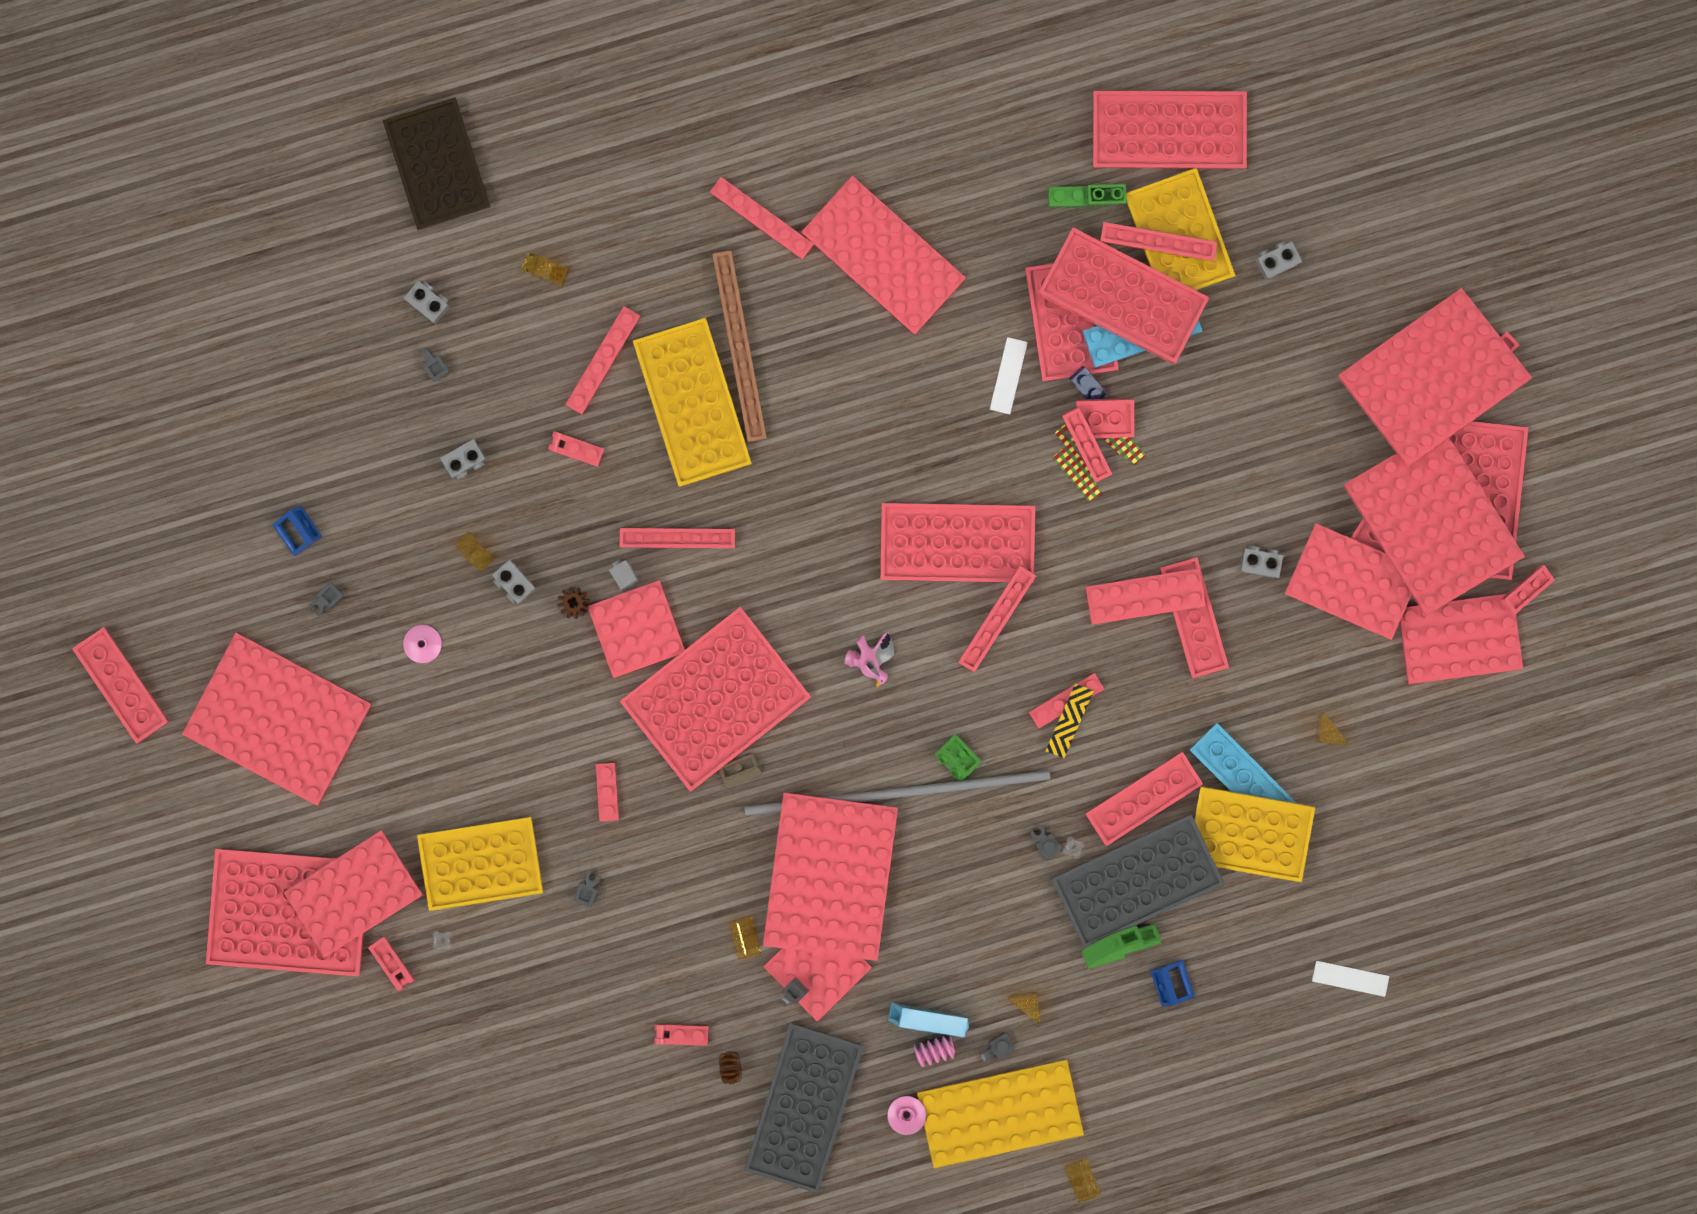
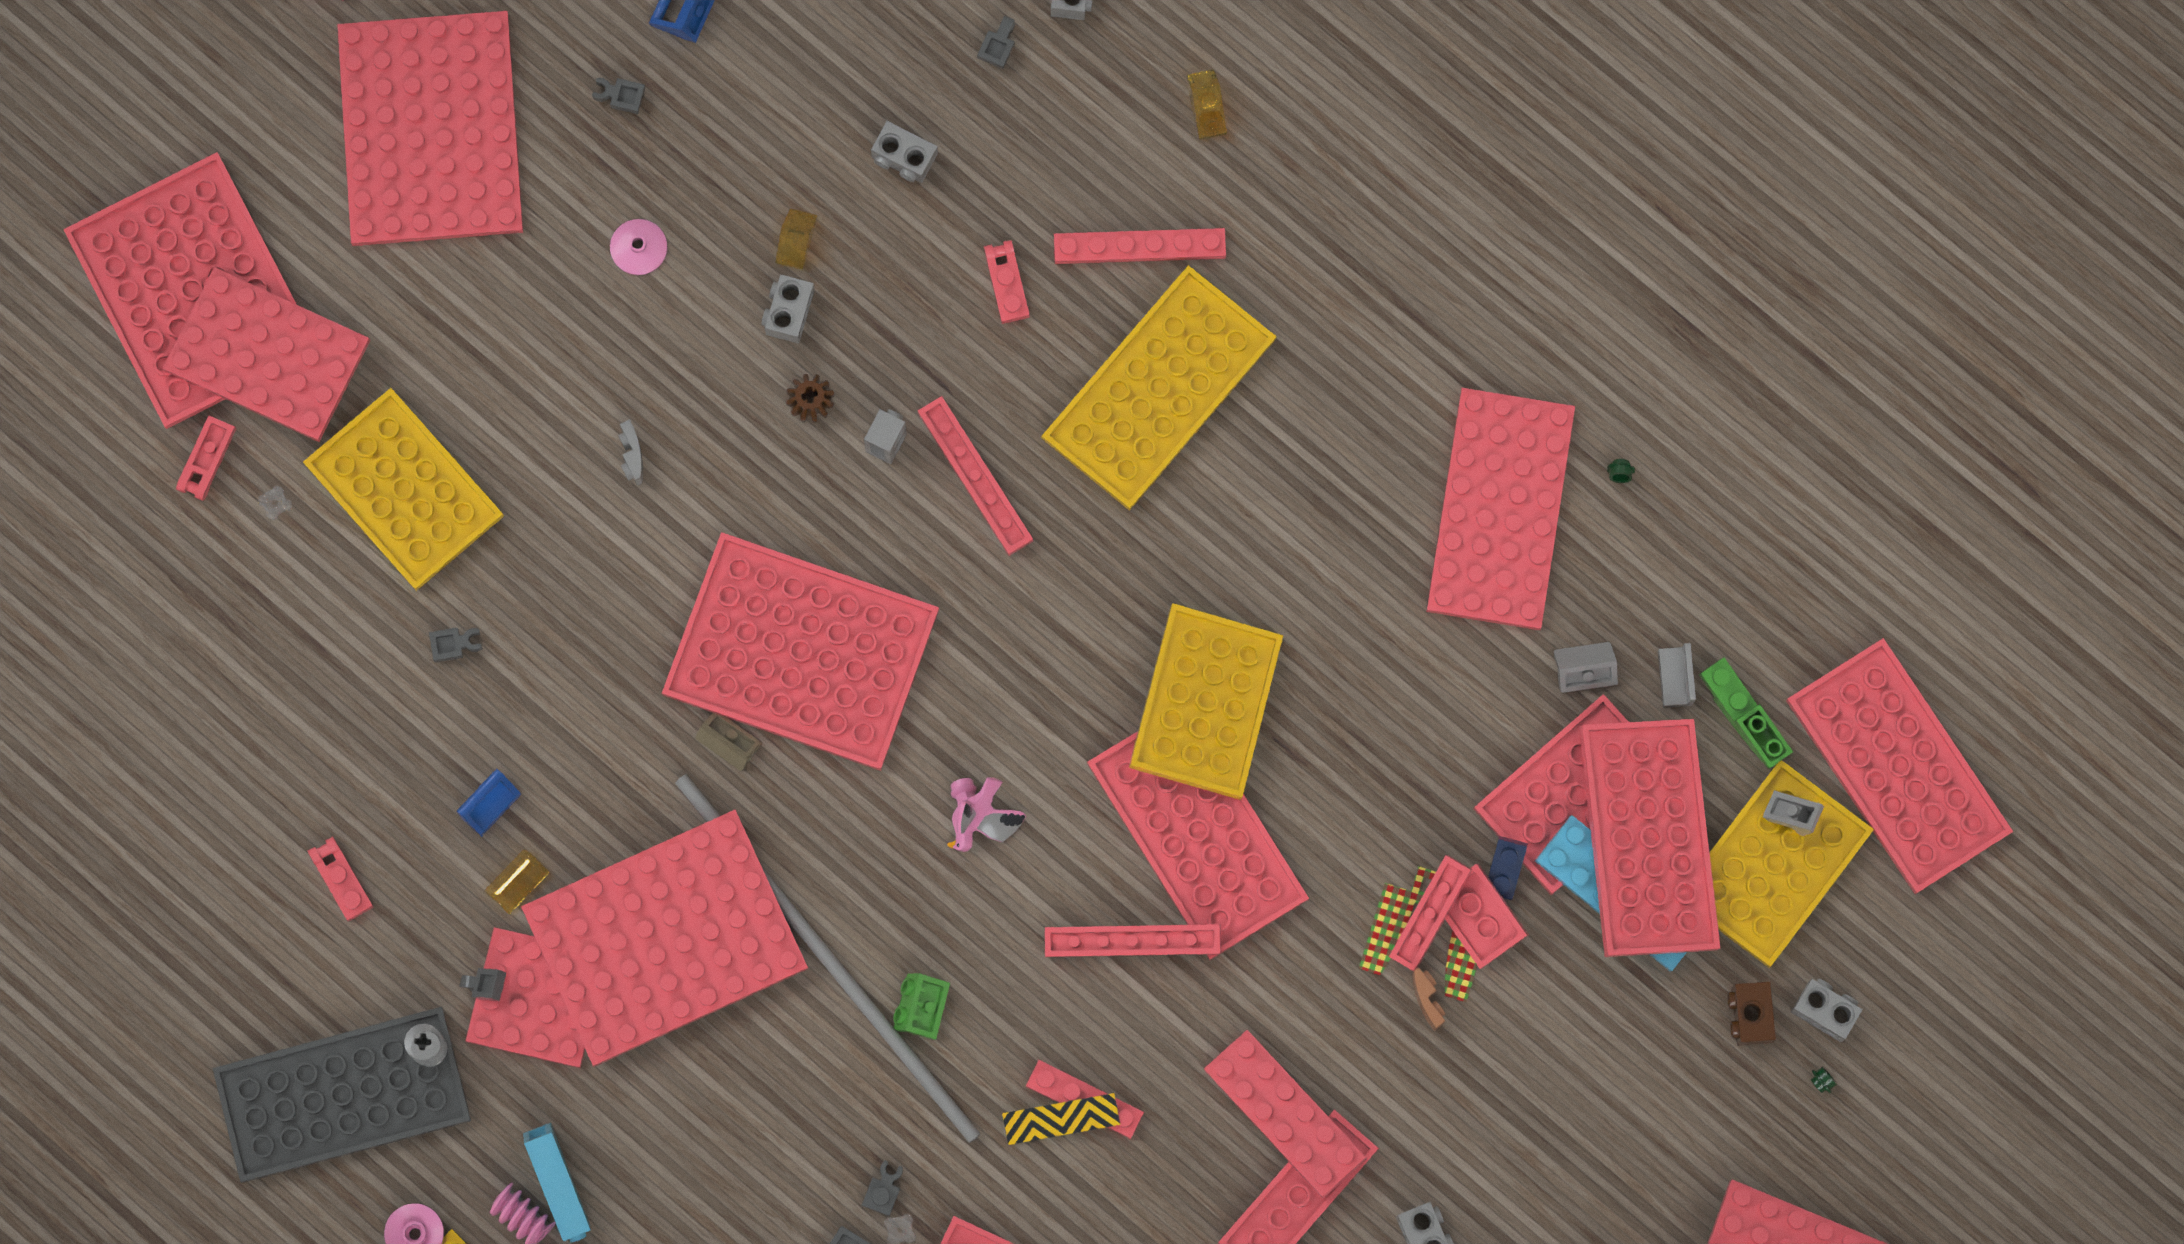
camera: 50 degrees right, 10 degrees down
(546, 724) = (633, 459): none -> light grey slope
(607, 792) = (595, 590): coral plate -> none
(636, 629) = (826, 497): coral plate -> none
(691, 926) = (488, 802): none -> blue tile
(730, 1067) = (336, 965): reddish brown gear -> none
(739, 346) = (1267, 401): nougat plate -> none
(761, 218) = (1446, 329): coral plate -> none
(810, 1054) = (433, 1053): none -> light grey piece
(889, 492) = (1206, 701): none -> yellow plate
(905, 174) = (1620, 471): none -> dark green plate
(1003, 266) = (1586, 667): none -> light grey panel
(1008, 375) = (1452, 762): white sticker -> none
(1041, 219) = (1677, 676): none -> light grey panel
(1126, 474) = (1424, 989): none -> nougat slope
(1158, 241) = (1748, 839): coral plate -> none
(1160, 207) = (1793, 812): none -> light grey slope
(1265, 301) = (1759, 997): none -> reddish brown brick
(1315, 288) = (1823, 1080): none -> dark green plate

